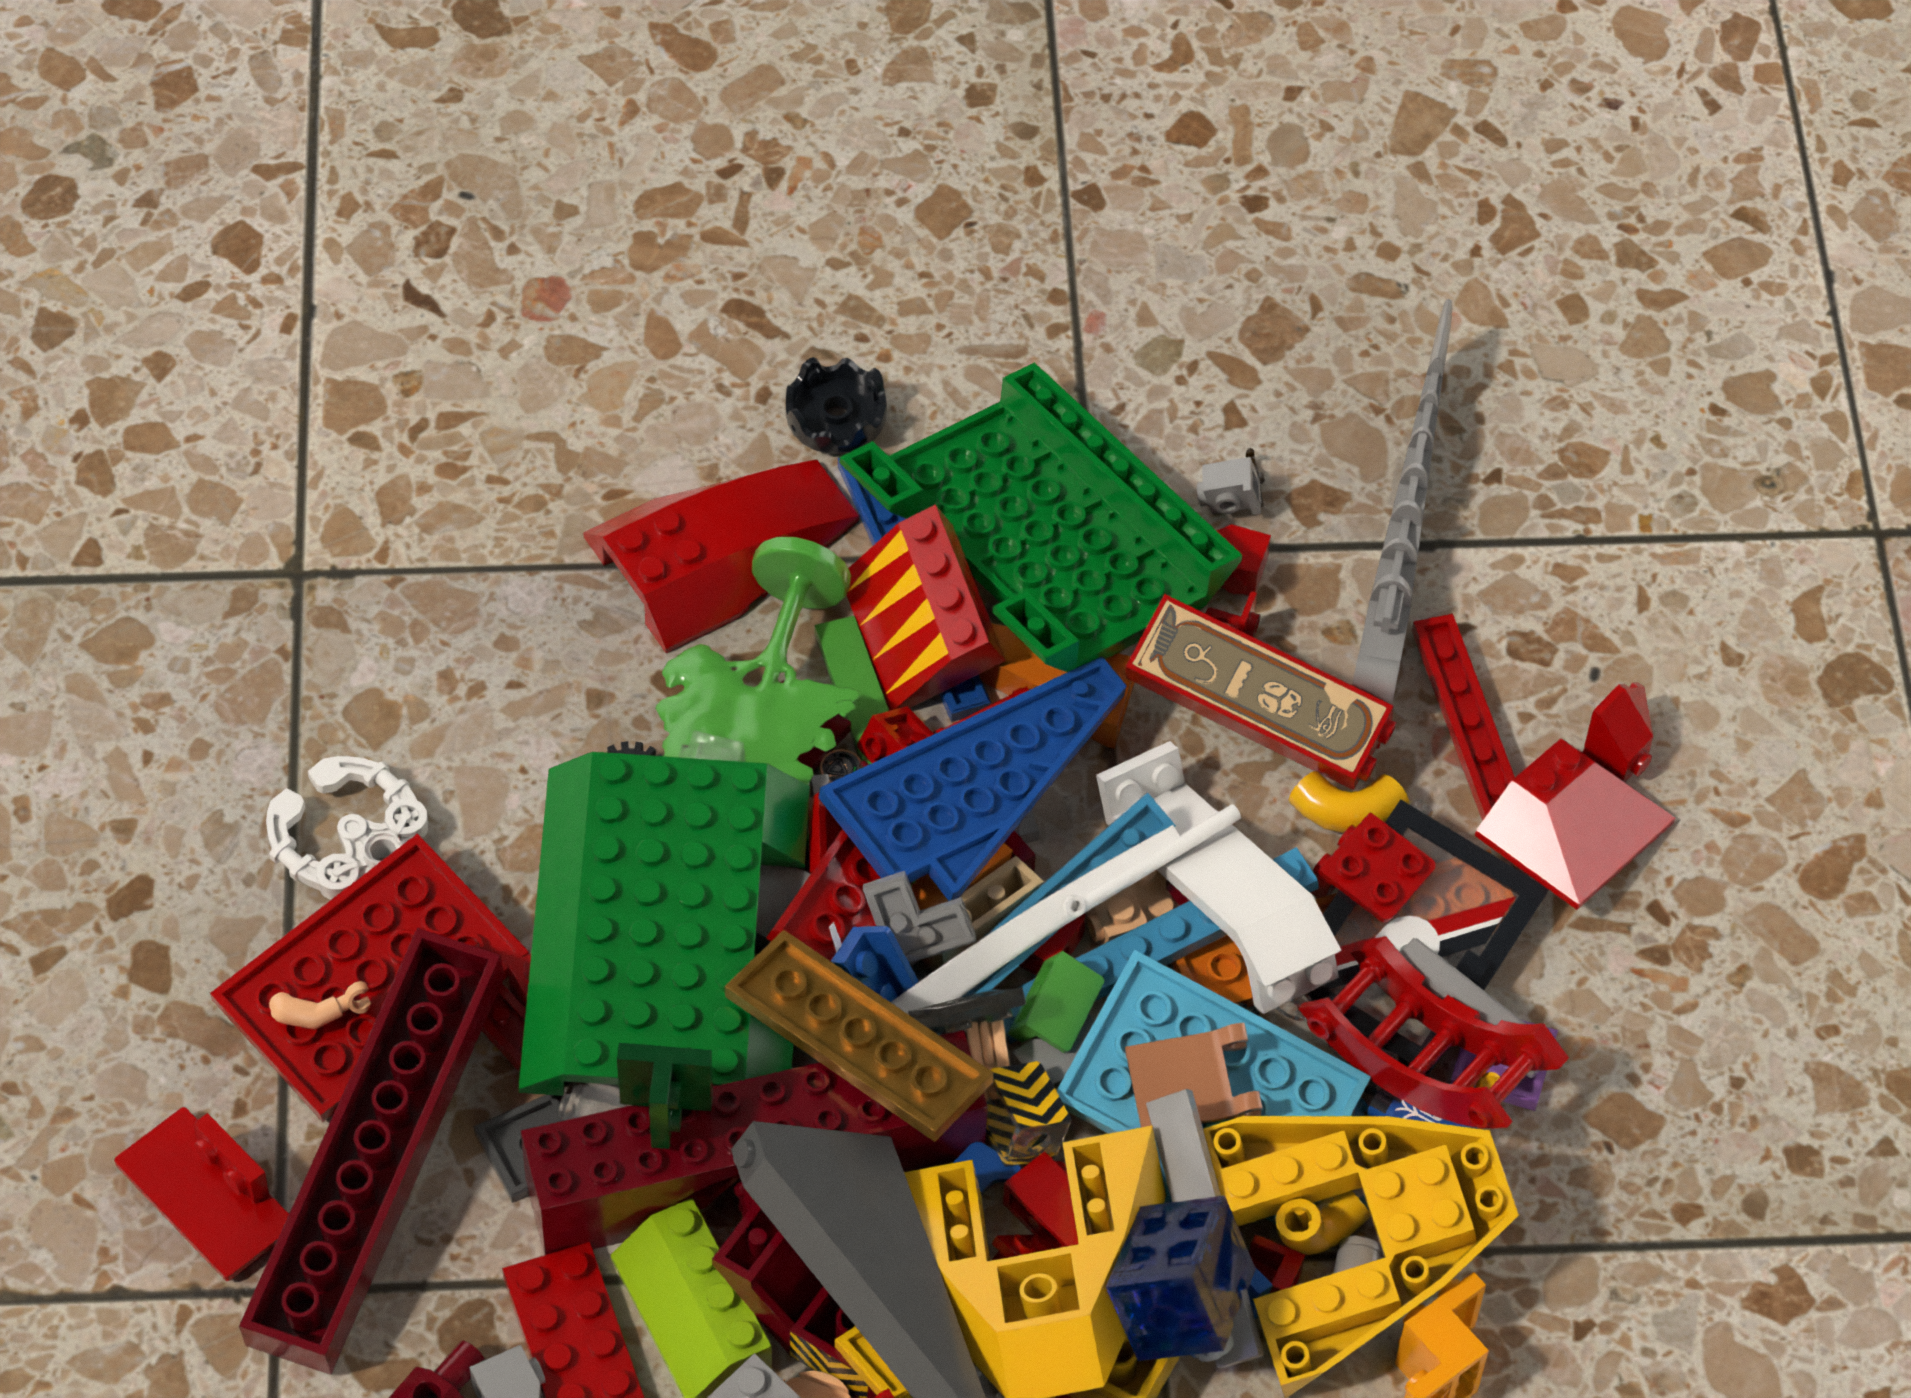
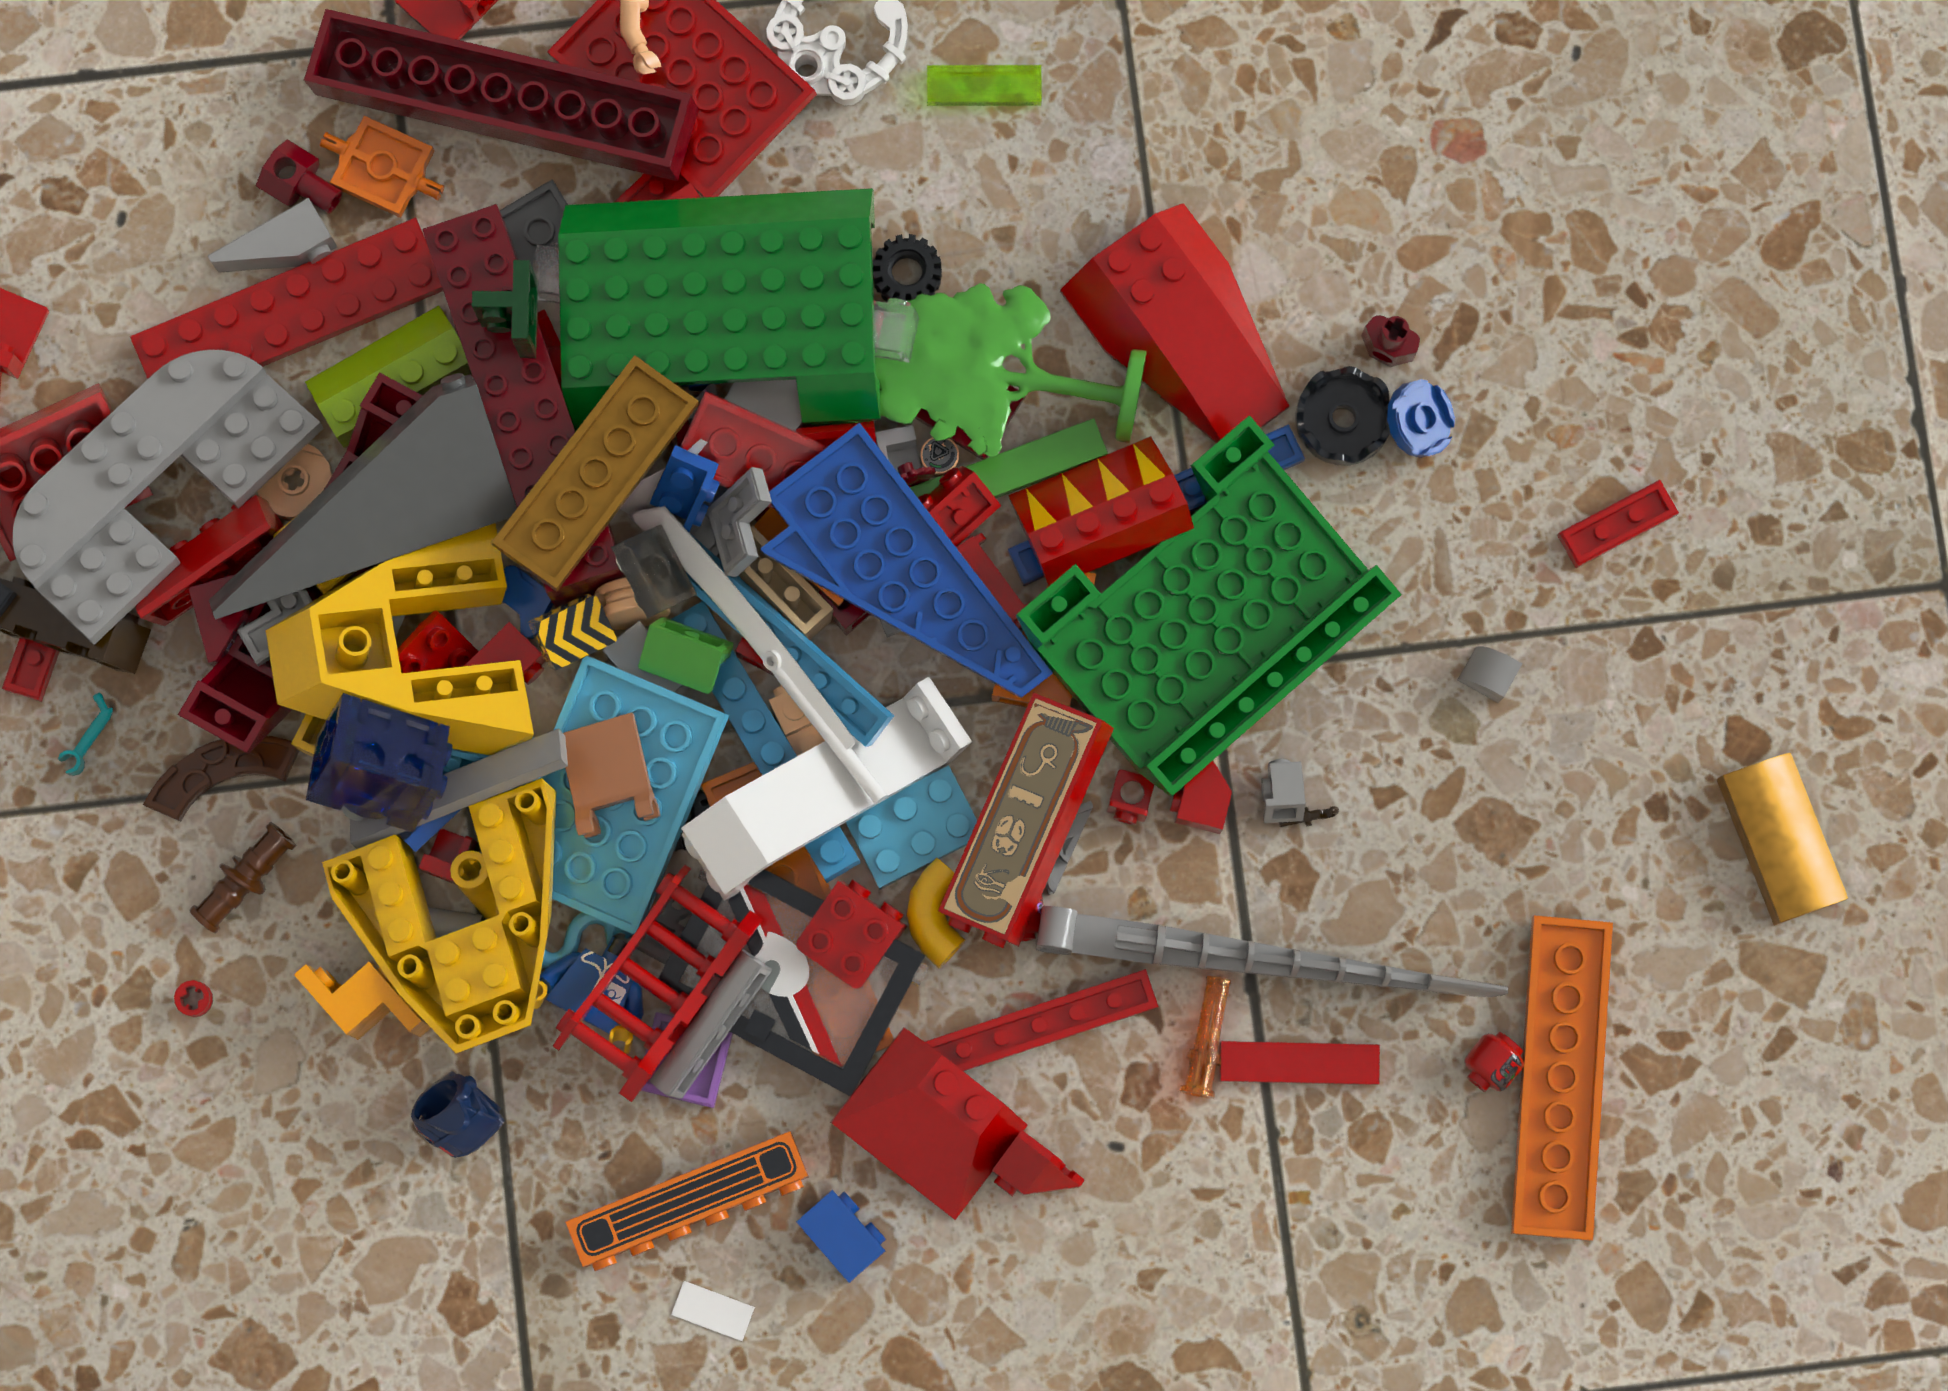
camera: 85 degrees right, 25 degrees up
(423, 701) = (984, 85): none -> clear neon green tile
(434, 1300) = (382, 166): none -> orange plate
(760, 359) = (1390, 340): none -> dark red piece
(842, 342) = (1420, 418): none -> tile
(966, 204) = (1618, 524): none -> red tile
(1114, 312) = (1490, 672): none -> light grey brick
(1263, 808) = (913, 827): none -> medium azure plate
(1292, 109) = (1782, 838): none -> pearl gold slope
(1503, 582) = (1199, 1058): none -> clear orange pin
(1509, 508) = (1300, 1063): none -> red tile
(1511, 343) = (1494, 1062): none -> red head
(1527, 294) = (1562, 1078): none -> orange plate
(1568, 1273) = (456, 1115): none -> dark blue piece
(1662, 1059) = (687, 1199): none -> brick
(1696, 914) = (841, 1234): none -> blue brick
(1777, 1052) = (713, 1311): none -> white sticker

